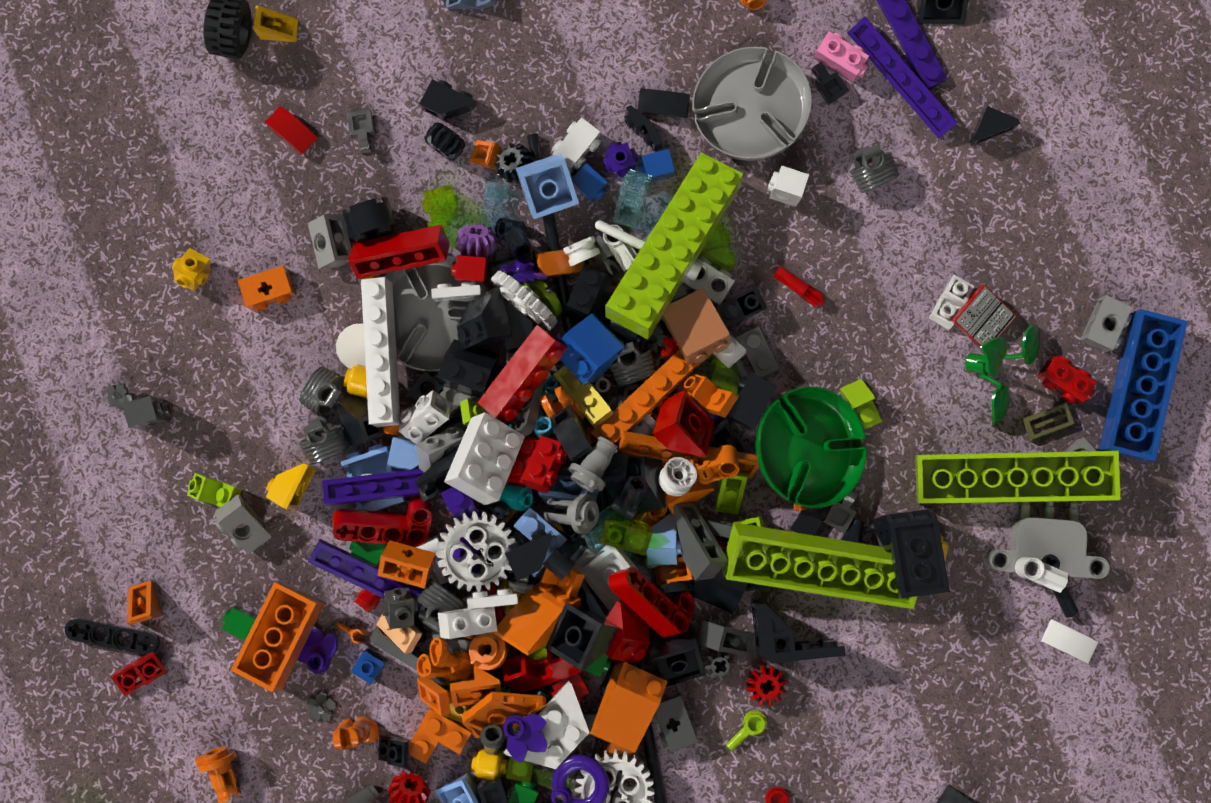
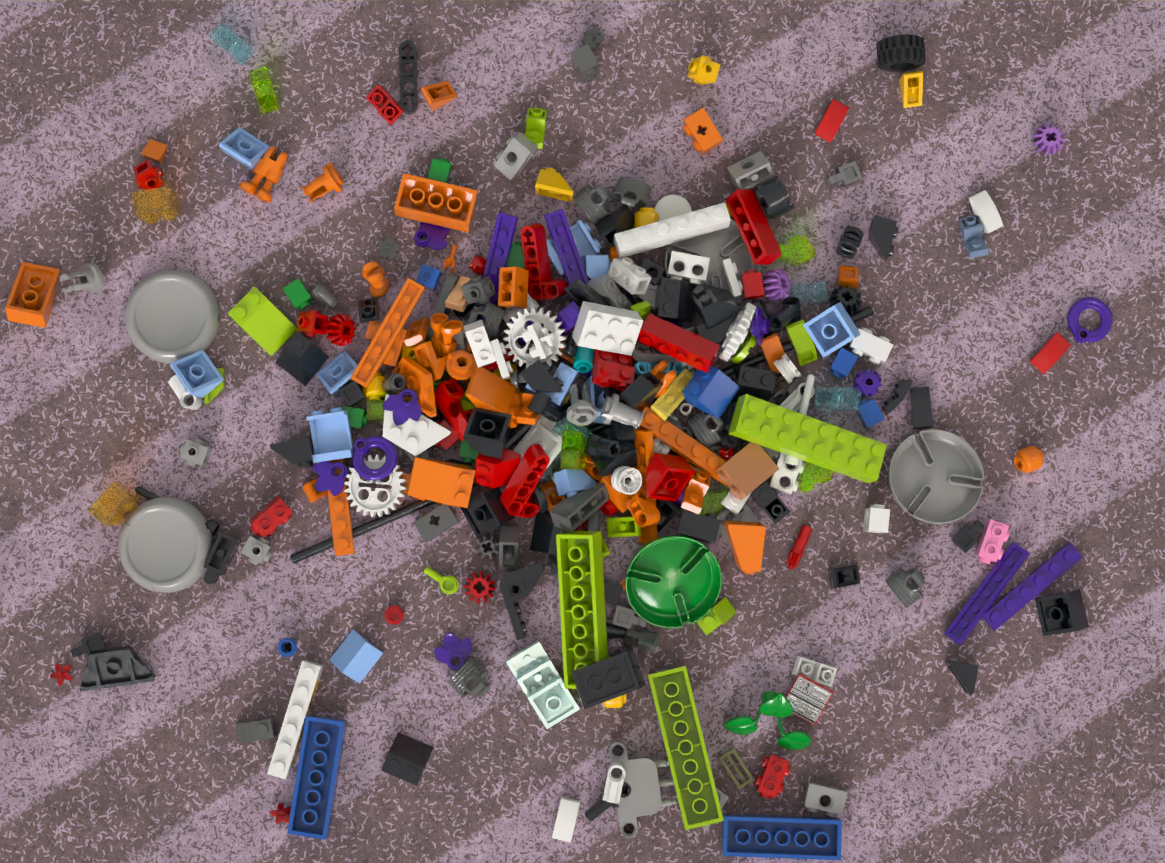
camera: 75 degrees right, 0 degrees up
(424, 340) = (689, 262): none -> white brick
(427, 734) = (387, 333): none -> orange plate
(481, 544) = (541, 339): none -> white hips
(553, 226) = (802, 343): none -> lime slope
(704, 505) = (608, 508): none -> red plate
(783, 347) = (746, 544): none -> orange slope
(834, 732) = (453, 648): none -> dark purple plate
(846, 241) = (843, 576): none -> black slope
(872, 496) = (645, 639): none -> flat silver plate
(874, 729) = (467, 675): none -> dark grey piece
(900, 634) = (542, 684): none -> light aqua slope

